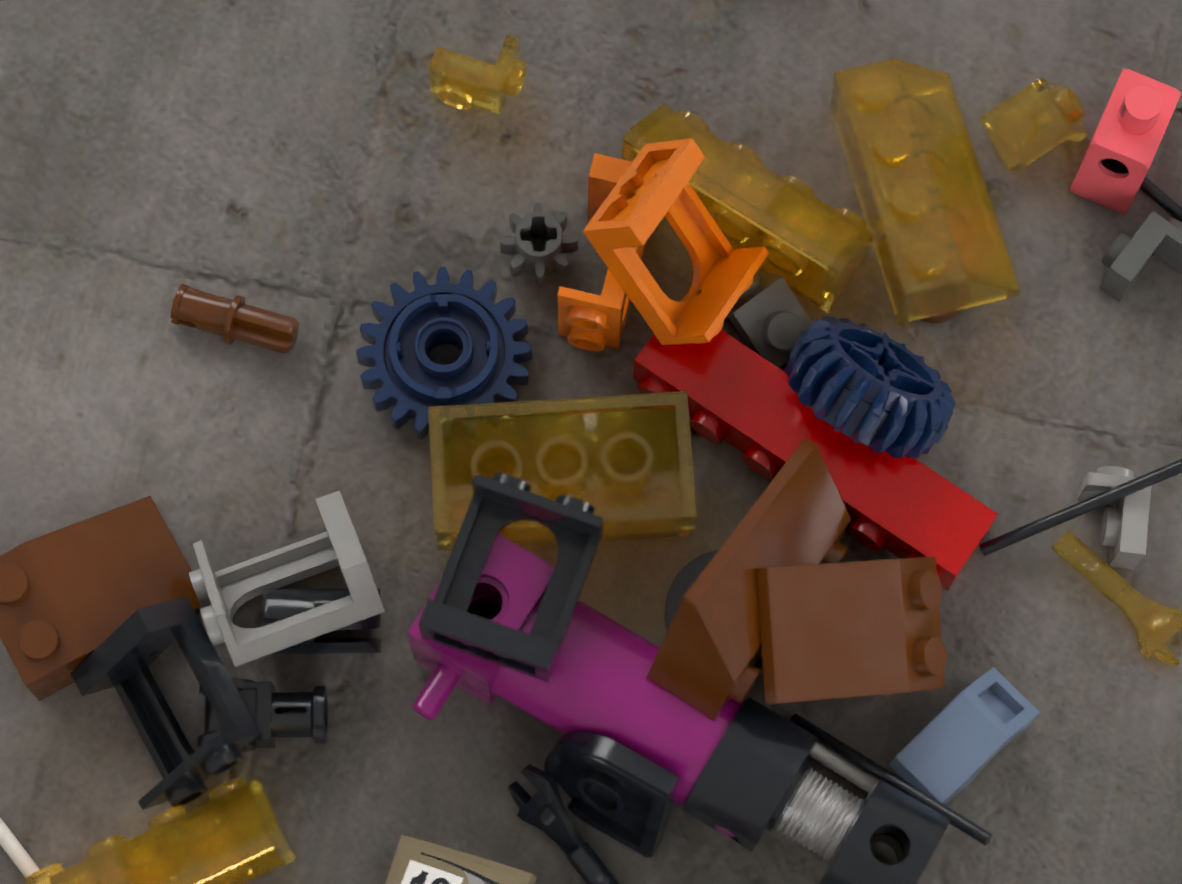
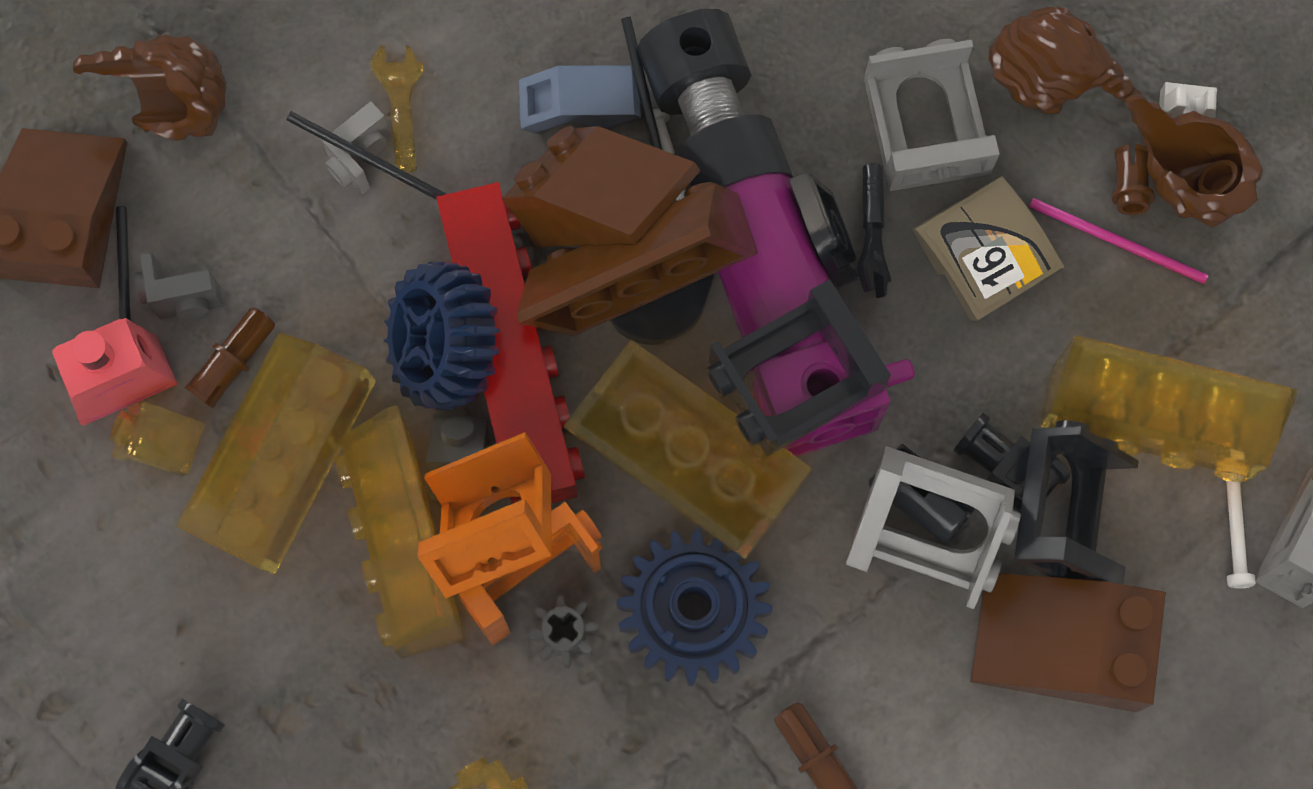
camera: 140 degrees left, 0 degrees up
(1041, 238) = (231, 357): none -> reddish brown axle

